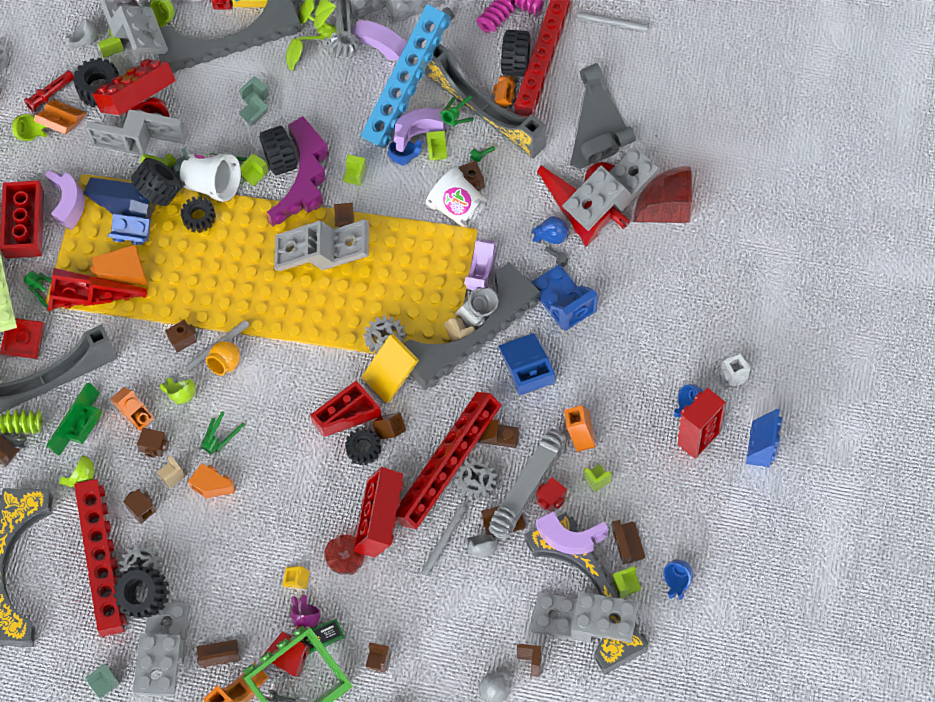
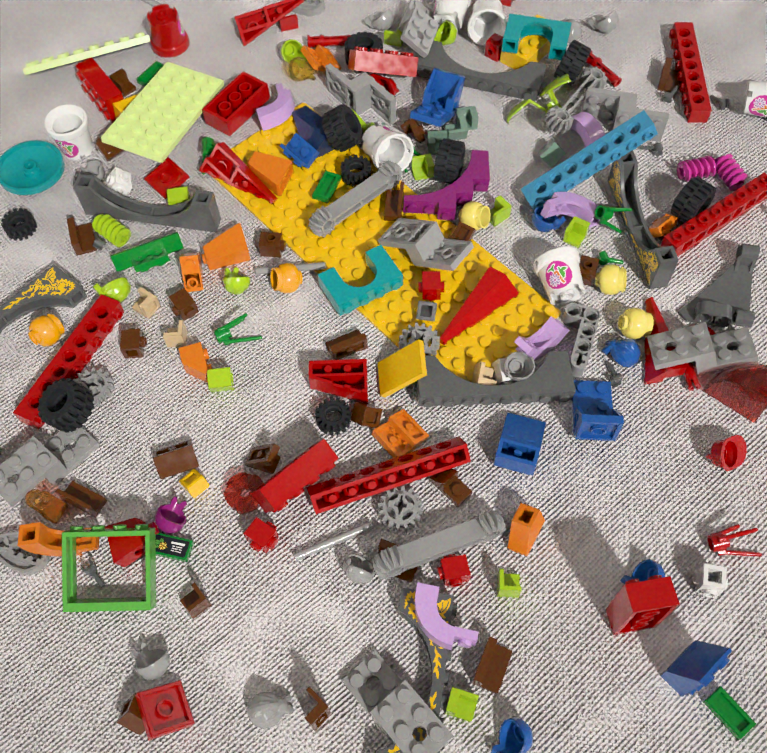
camera: 35 degrees right, 5 degrees down
(51, 143) = (299, 70): none -> clear yellow piece
(53, 349) = (178, 195): none -> lime panel
(54, 548) = (45, 330): none -> light orange piece
(116, 464) = (147, 304): none -> tan panel
(145, 366) = (226, 249): none -> orange slope
(183, 247) = (326, 186): none -> green tile
(197, 677) = (48, 505): none -> clear orange piece
(217, 91) = (440, 98): none -> blue bracket
(220, 135) = (412, 125): none -> reddish brown bracket
(224, 244) = (328, 217): none -> light grey arm
(246, 136) = (434, 139): none -> sand green panel
(246, 481) = (220, 379): none -> lime panel
(260, 223) = (394, 204): none -> reddish brown panel
(264, 569) = (175, 459): none -> reddish brown panel
(292, 339) = (347, 298): none -> teal arch
(322, 379) = (347, 344): none -> reddish brown panel
(336, 517) = (264, 458): none -> reddish brown slope
(339, 189) = (475, 215): none -> light yellow piece
(354, 279) = (431, 285): none -> red brick
(358, 79) = (551, 153): none -> sand green panel
(367, 304) = (426, 310): none -> flat silver slope
(387, 575) = (261, 535): none -> red brick
(410, 253) = (488, 295): none -> red wedge
(428, 423) = (400, 434): none -> orange slope
(498, 172) = (611, 279): none -> light yellow piece
(511, 244) = (580, 321): none -> light grey beam
(545, 200) = (635, 323): none -> light yellow piece
(686, 262) = (728, 452): none -> red piece
(723, 336) = (720, 541): none -> red plant
(806, 454) = (729, 713): none -> green tile

